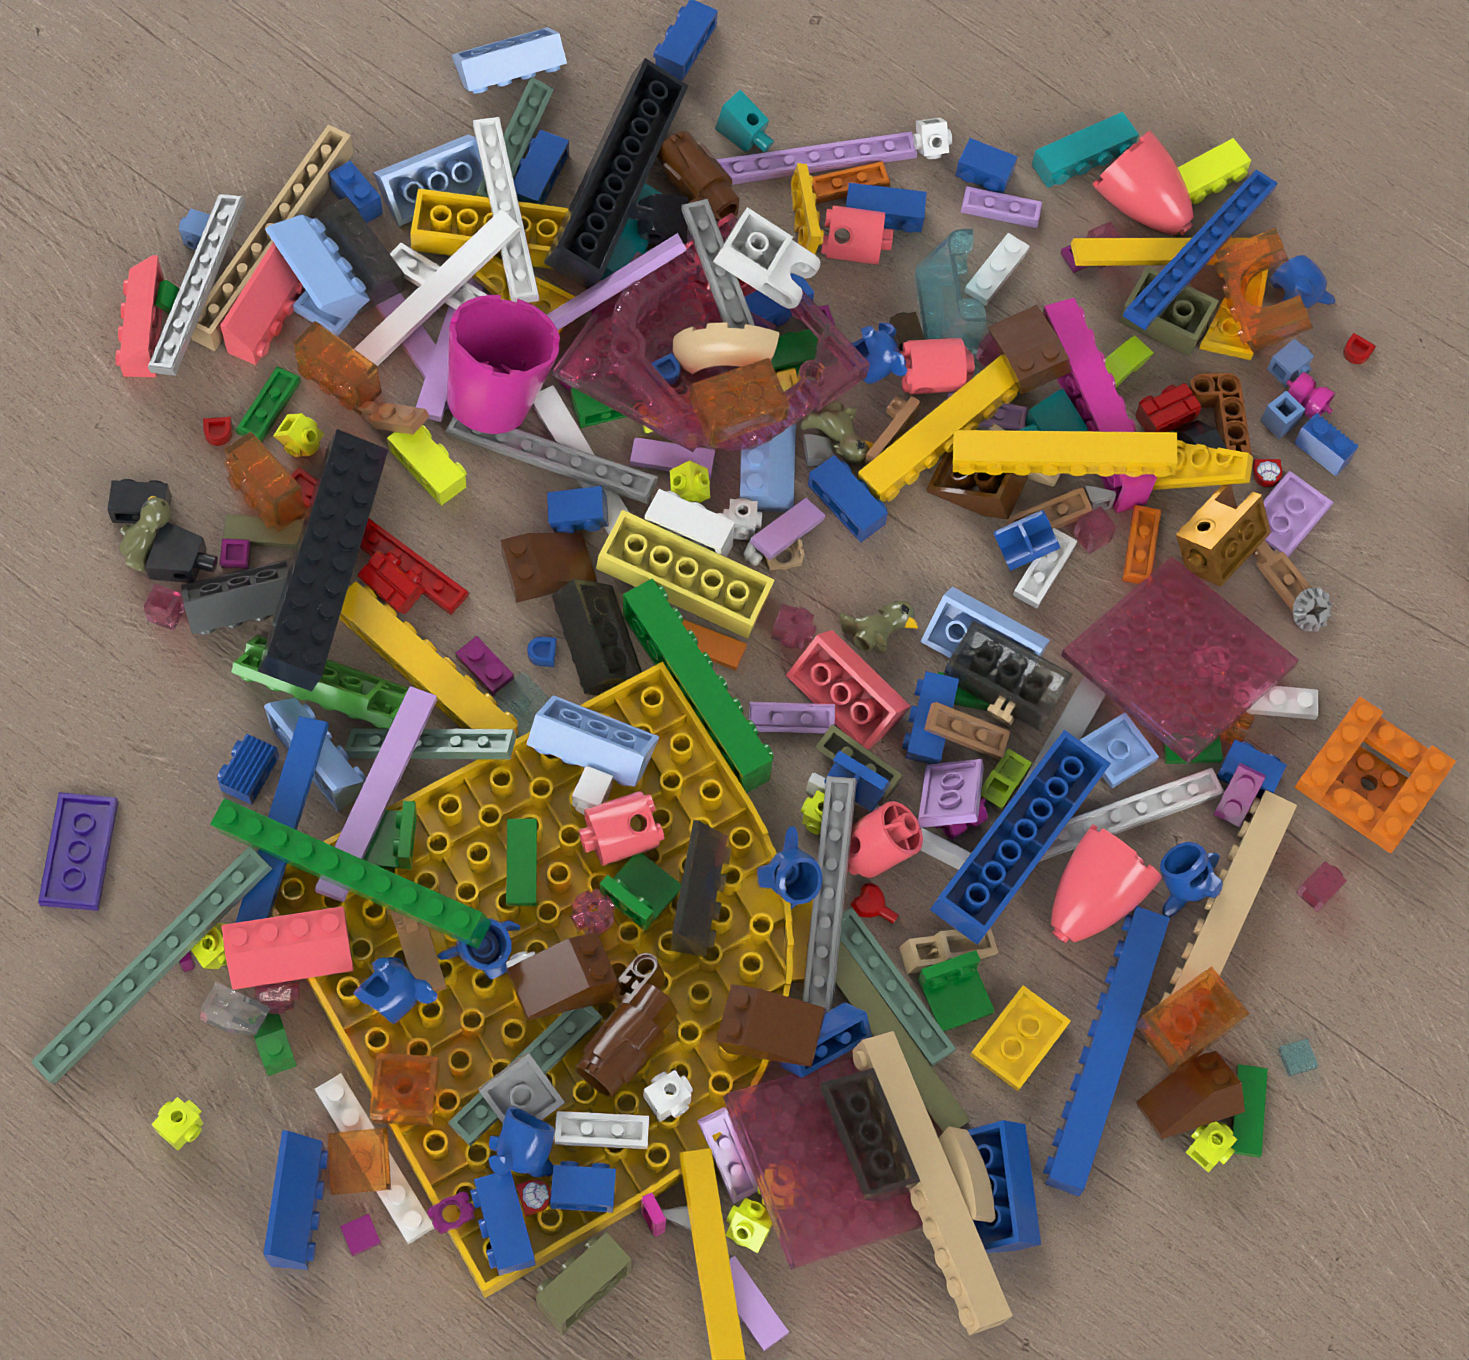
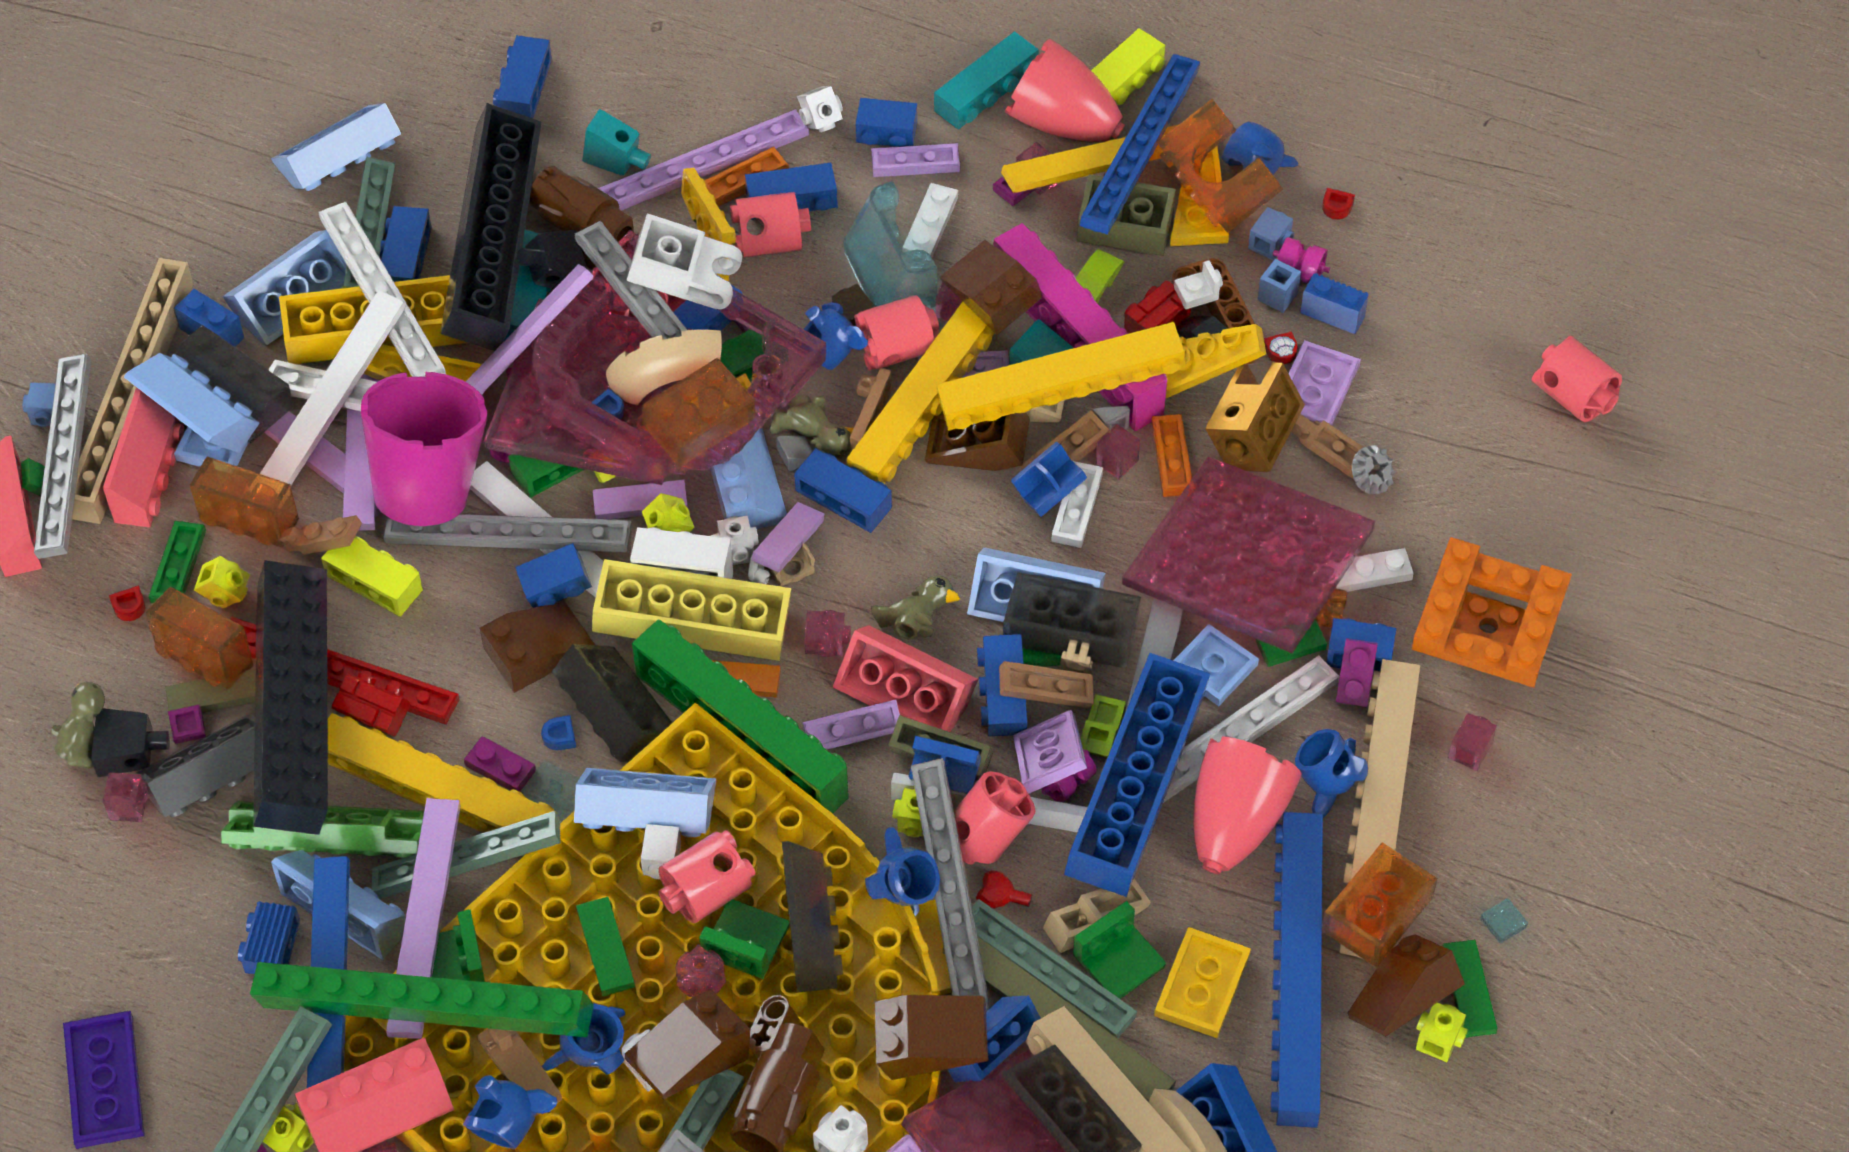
camera: 10 degrees left, 10 degrees down
(129, 496) = (52, 697): black brick -> none
(1211, 399) = (1199, 287): none -> white bracket

